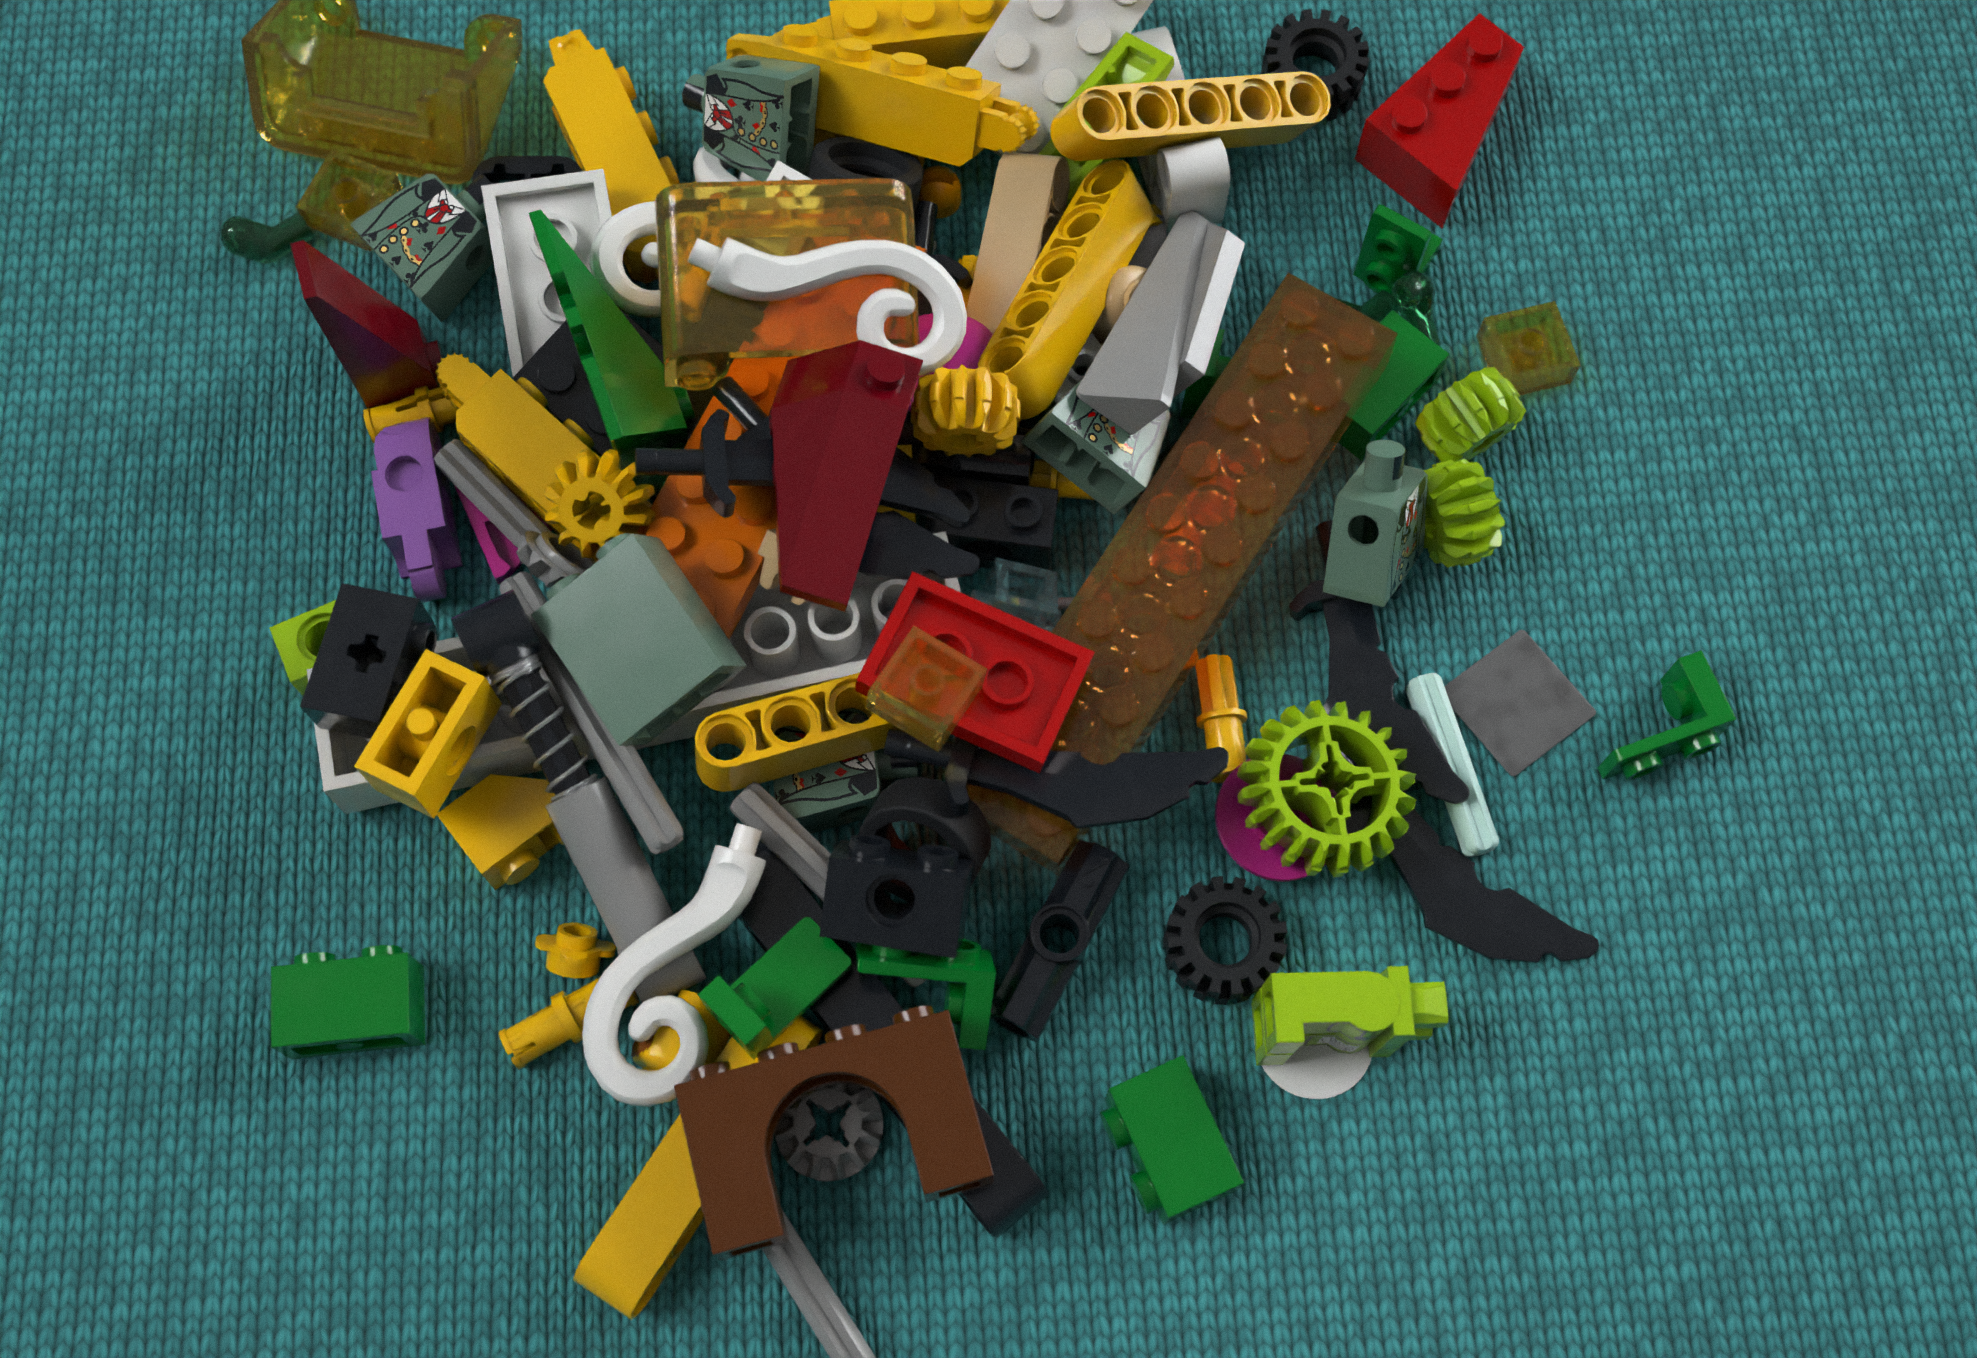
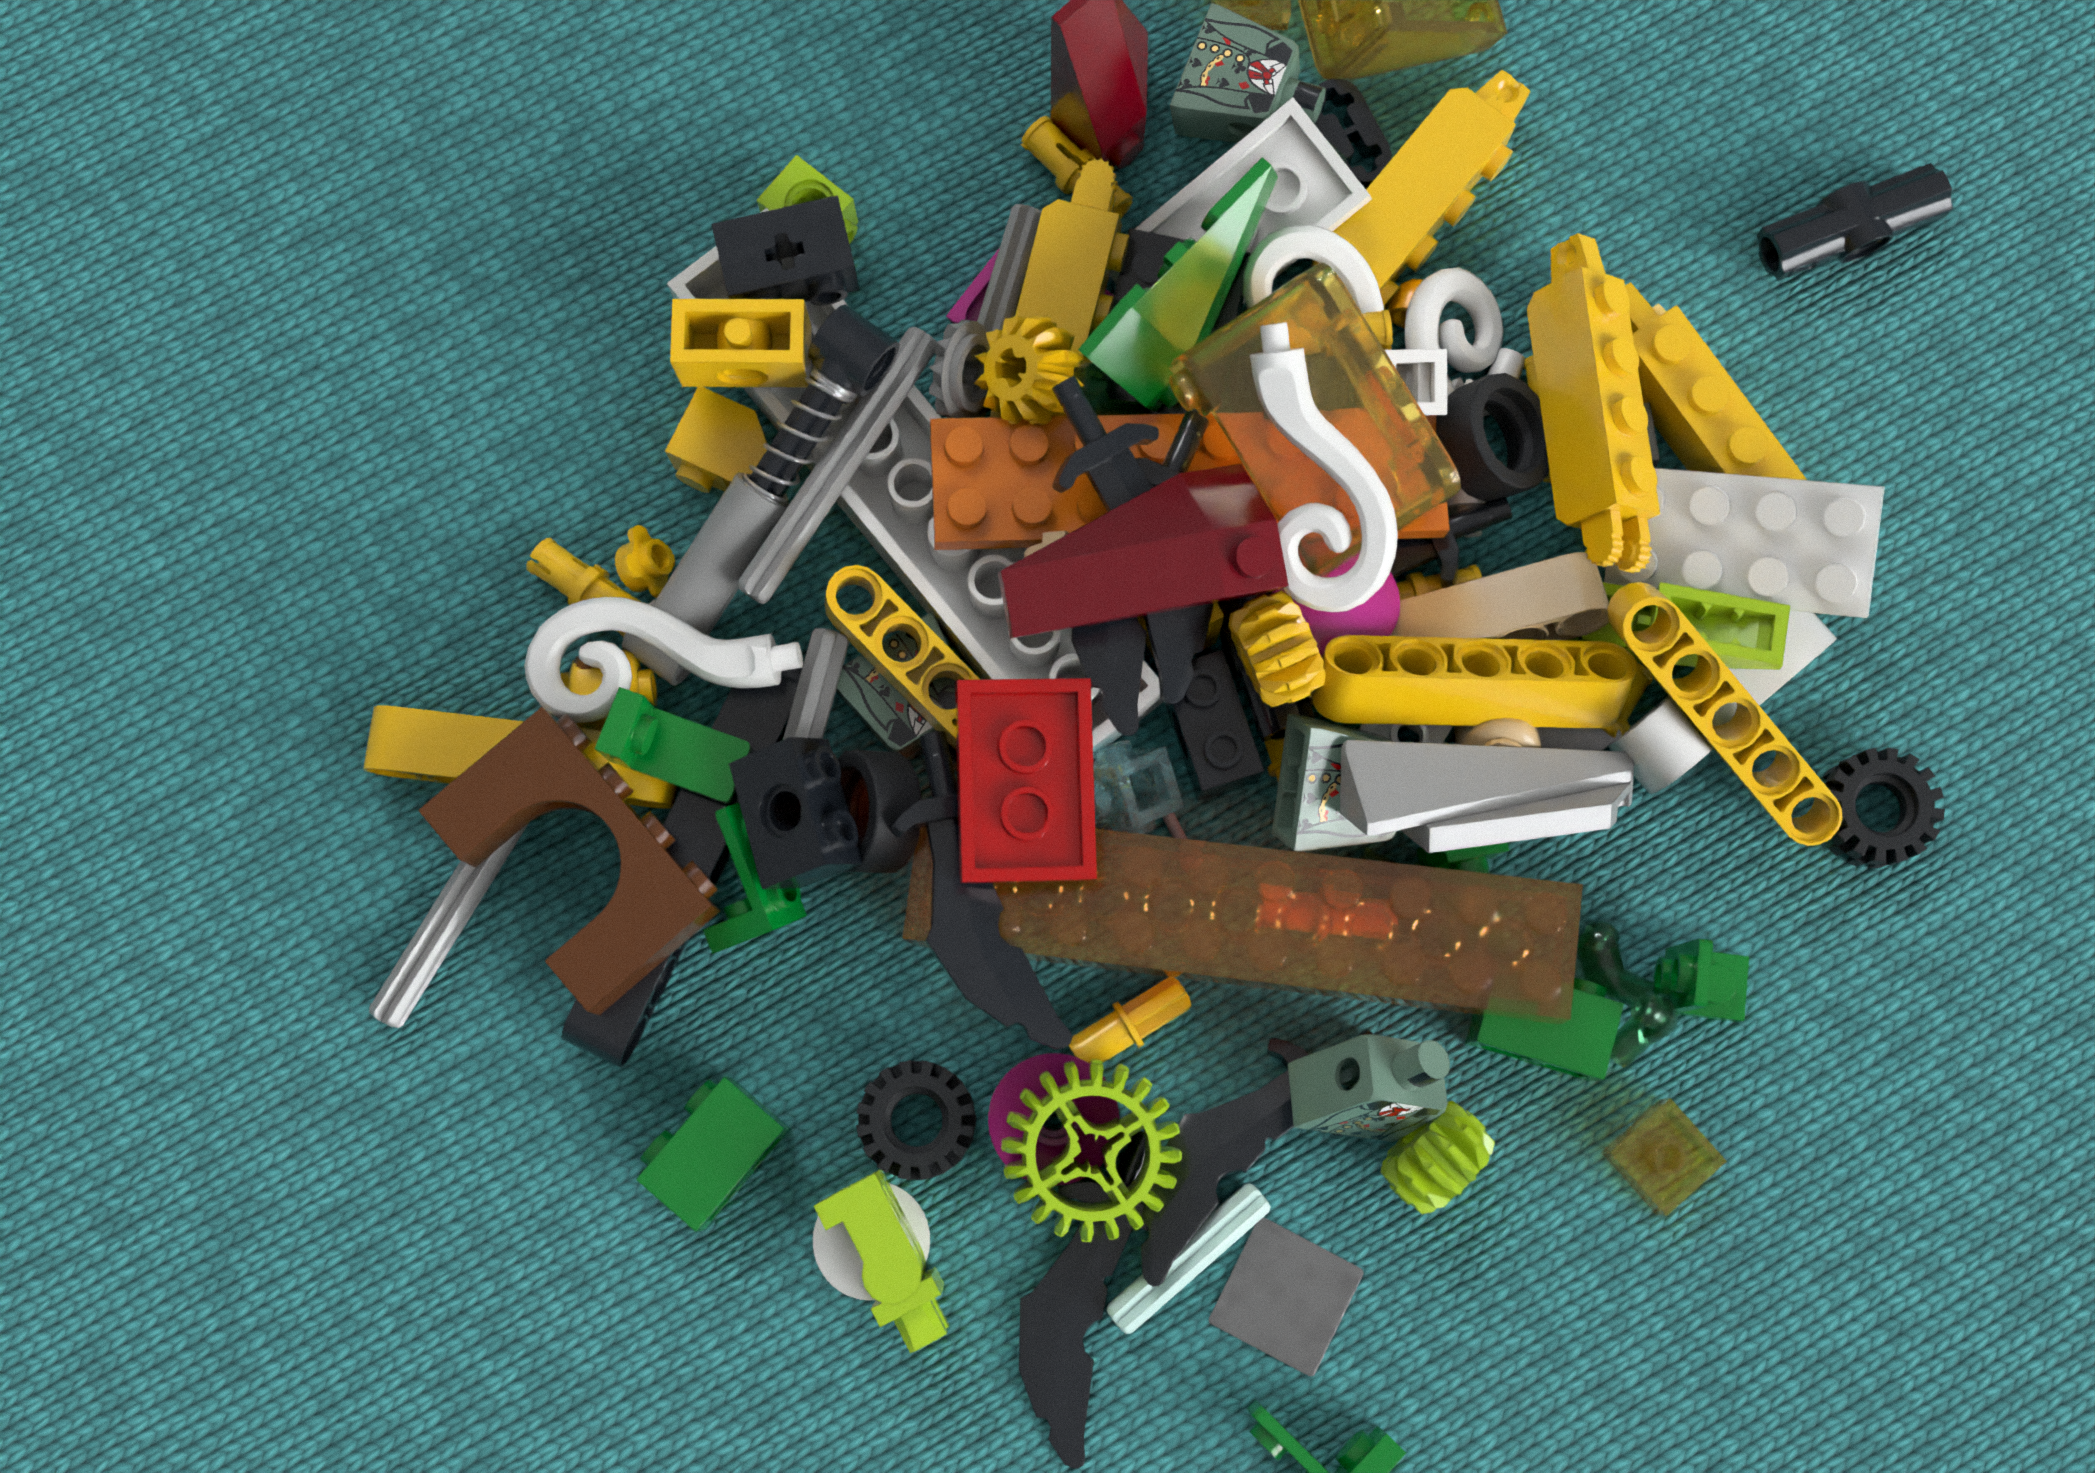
camera: 65 degrees right, 10 degrees up
(347, 1003) = (513, 404): green brick -> none
(416, 506) = (972, 211): medium lavender piece -> none
(637, 638) = (910, 470): sand green brick -> none
(757, 112) = (1511, 304): sand green torso -> none
(826, 1158) = (570, 863): light grey gear -> none
(925, 688) = (973, 745): clear yellow piece -> none
(942, 188) = (1531, 512): light orange hinge -> none
(1041, 976) = (803, 971): black piece -> none
(1438, 119) = (1879, 961): red wedge -> none
(1470, 416) = (1548, 1128): lime gear -> none

